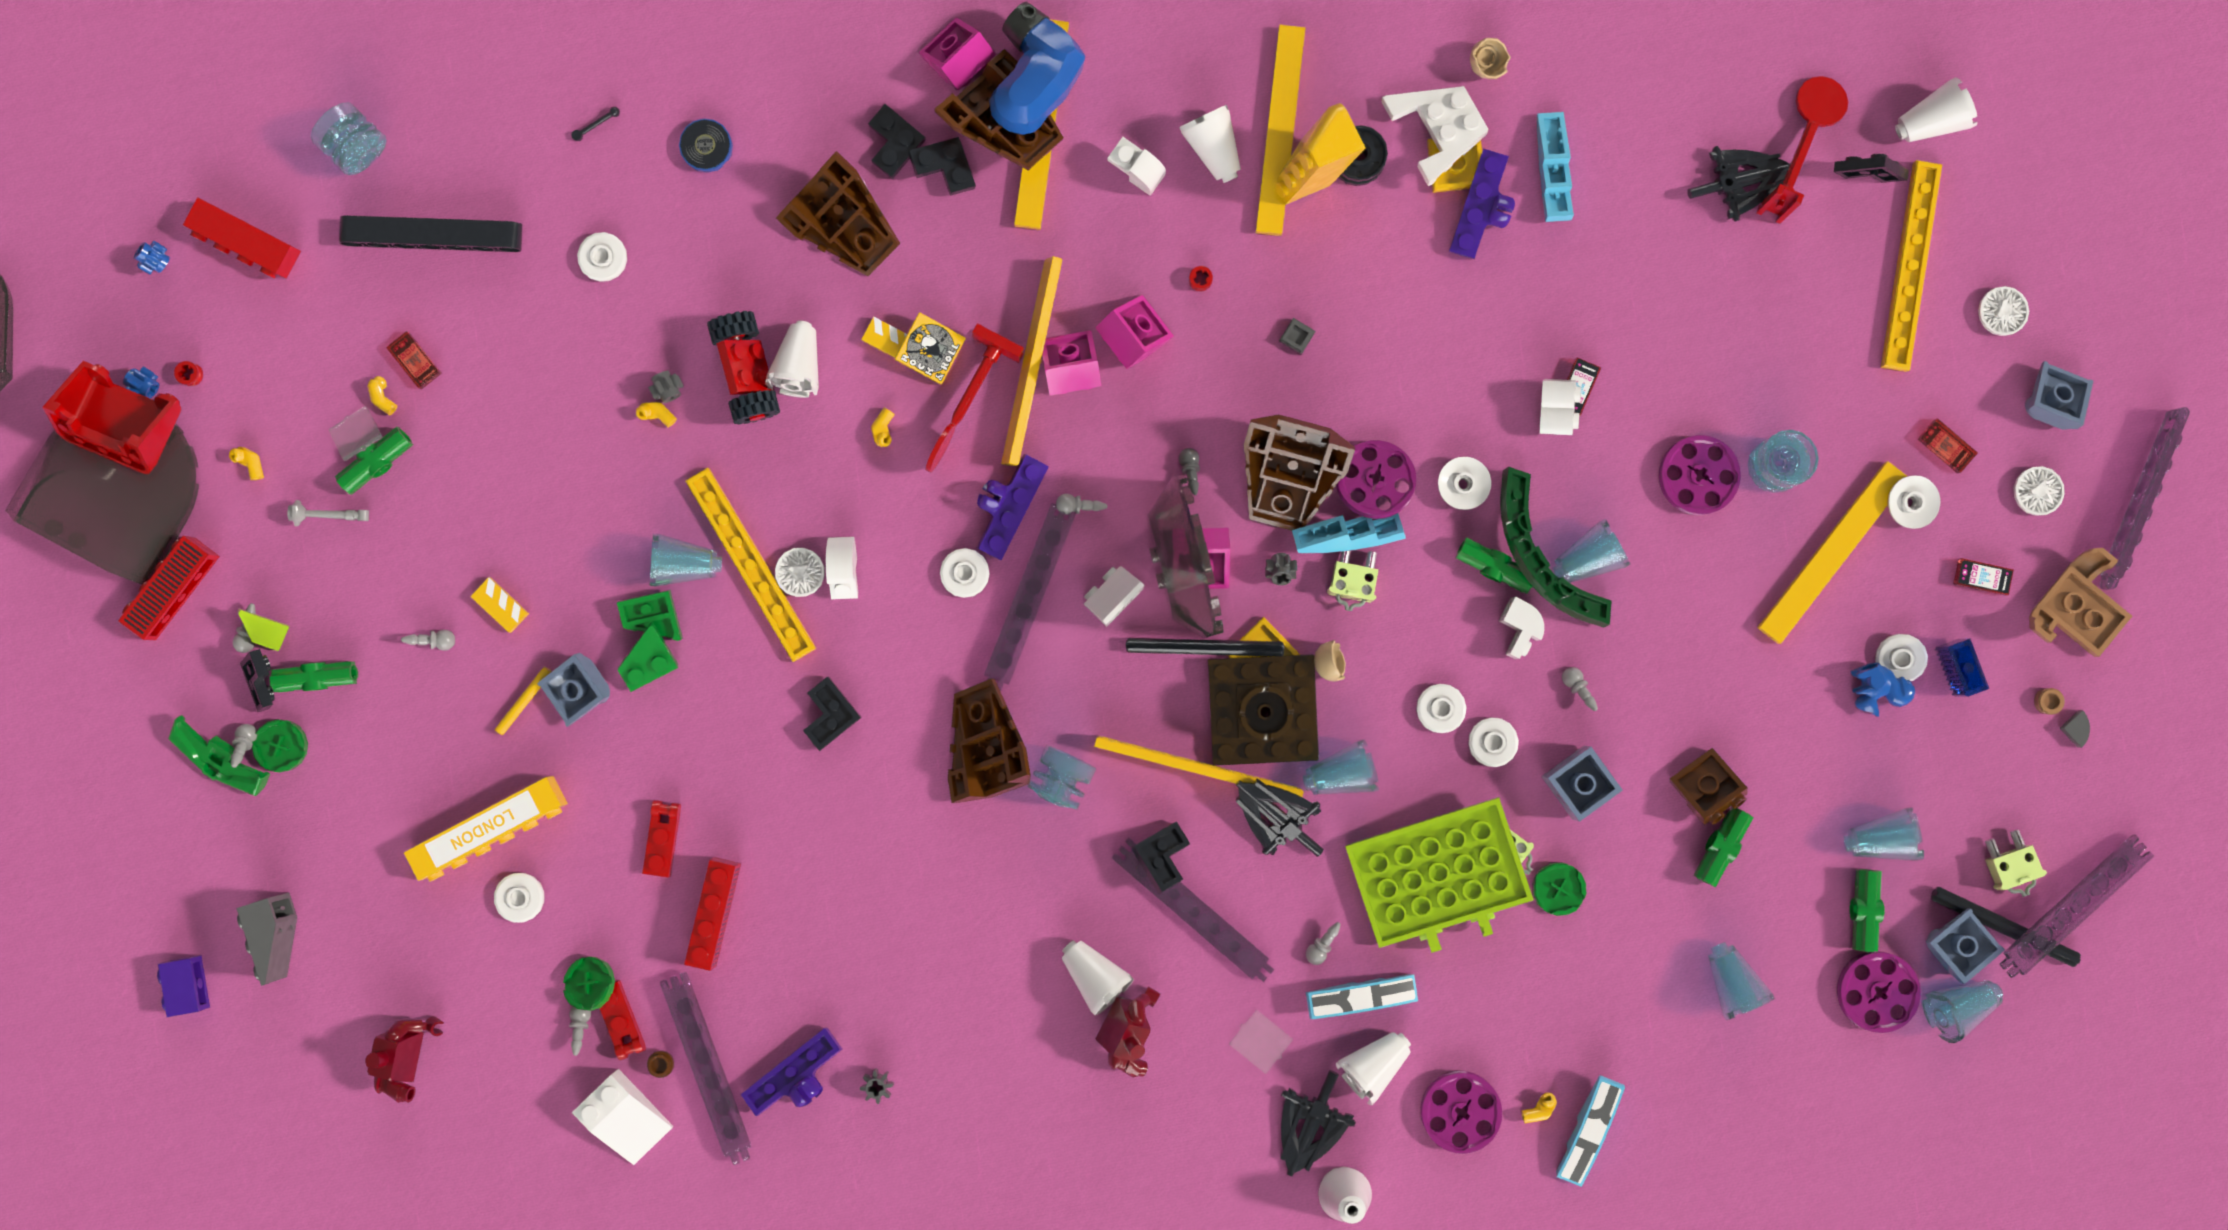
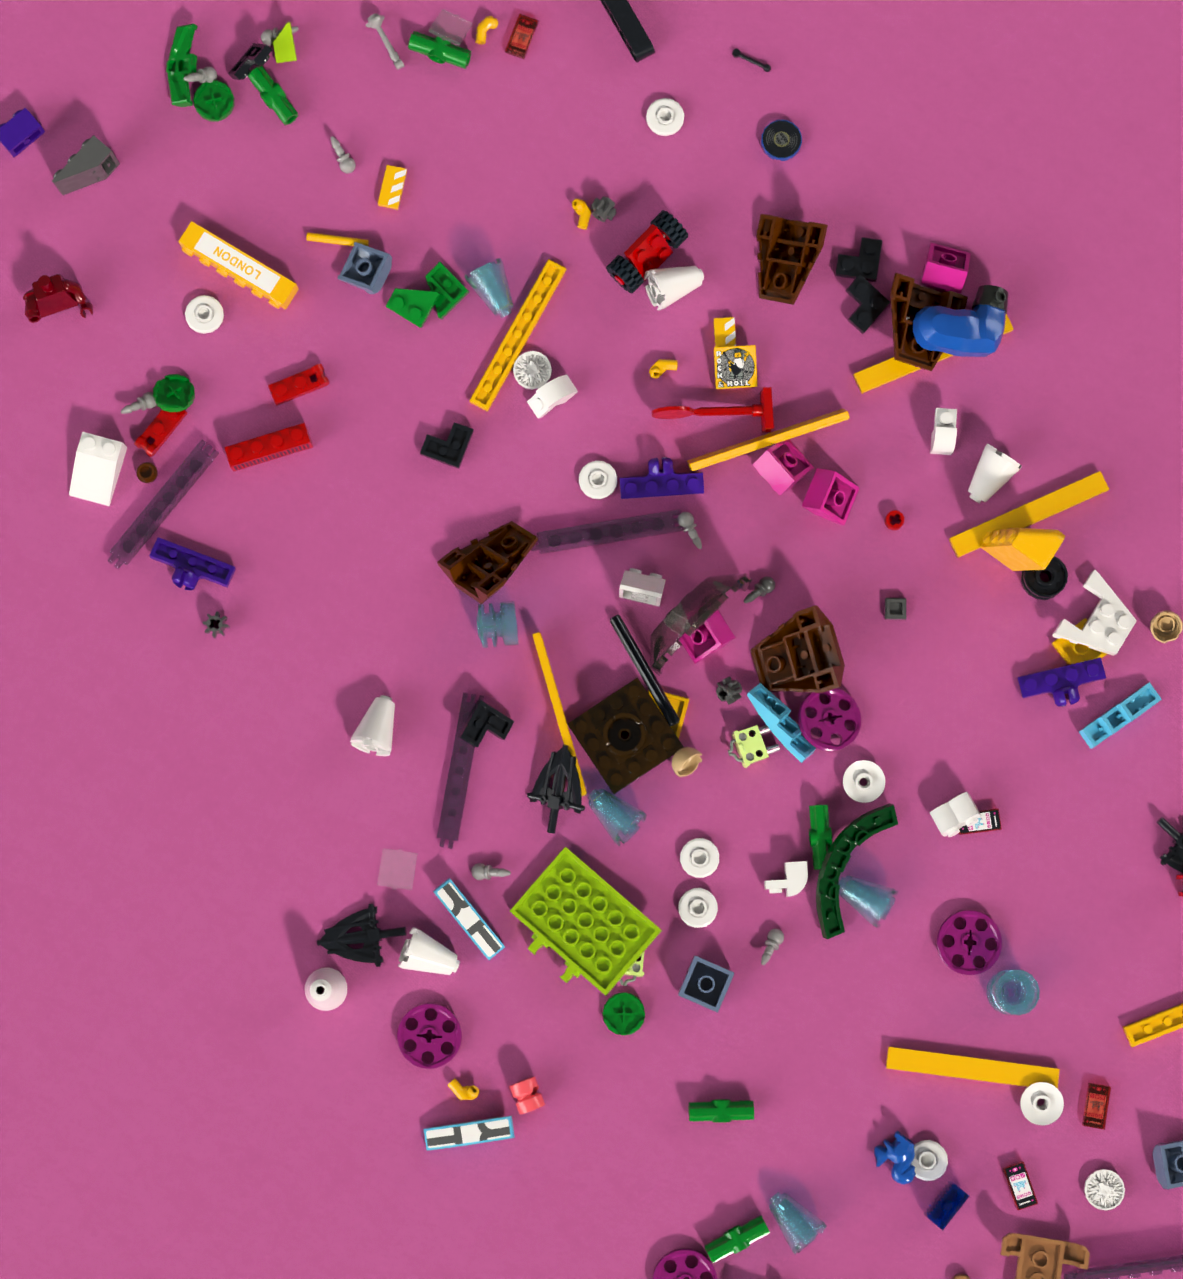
camera: 60 degrees right, 5 degrees down
(1126, 1033) = (351, 769): dark red torso -> none
(1590, 1045) = (527, 1095): none -> coral wheel
(1709, 787) = (756, 1076): reddish brown plate -> none
(1736, 982) = (631, 1174): clear light blue cone -> none

